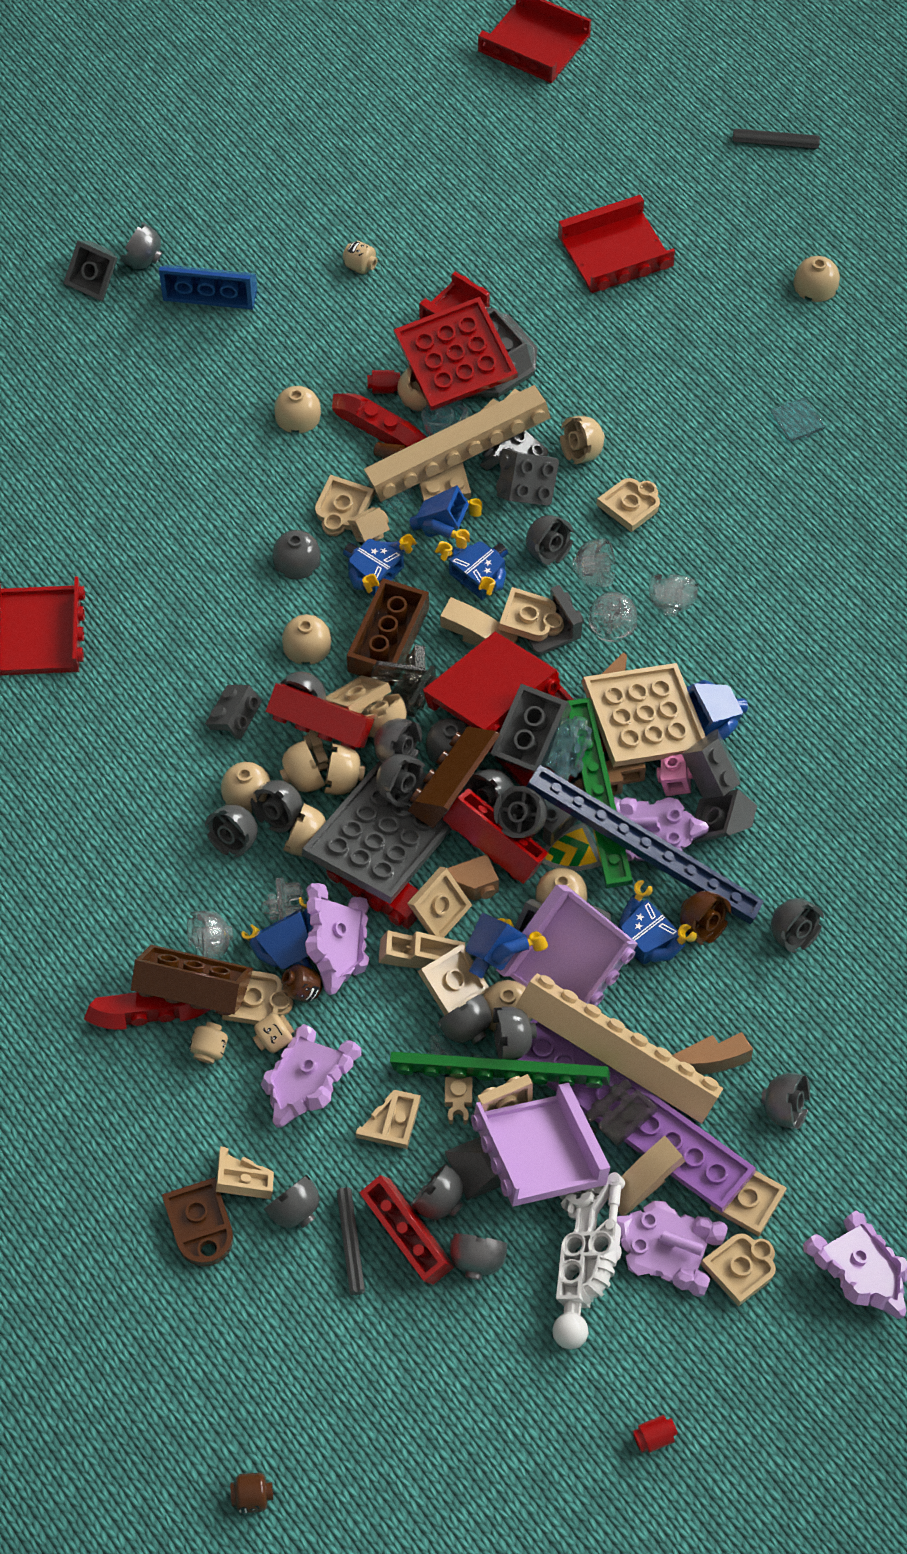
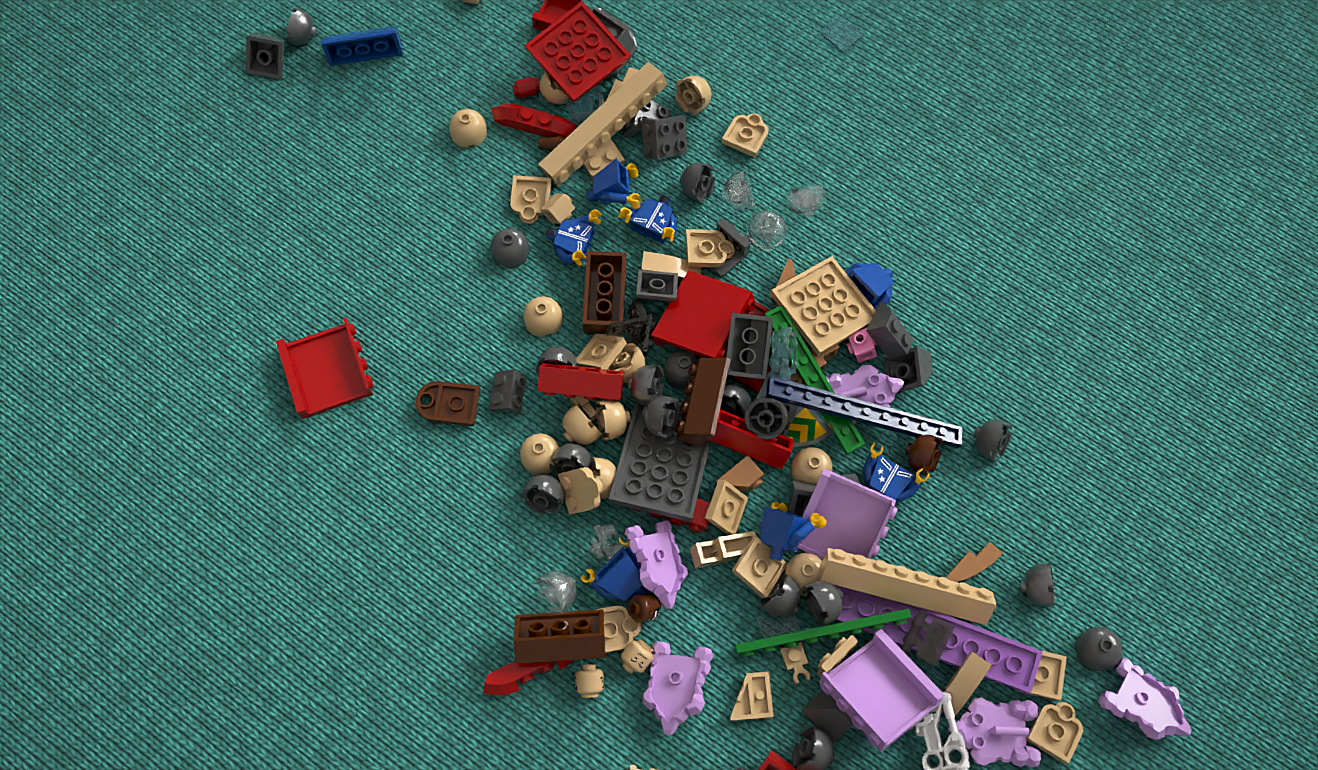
camera: 20 degrees left, 10 degrees up
(163, 703) = (450, 403): none -> reddish brown plate
(275, 834) = (580, 490): none -> tan plate
(449, 639) = (656, 286): none -> dark grey slope
(832, 1194) = (1098, 649): none -> dark grey cylinder

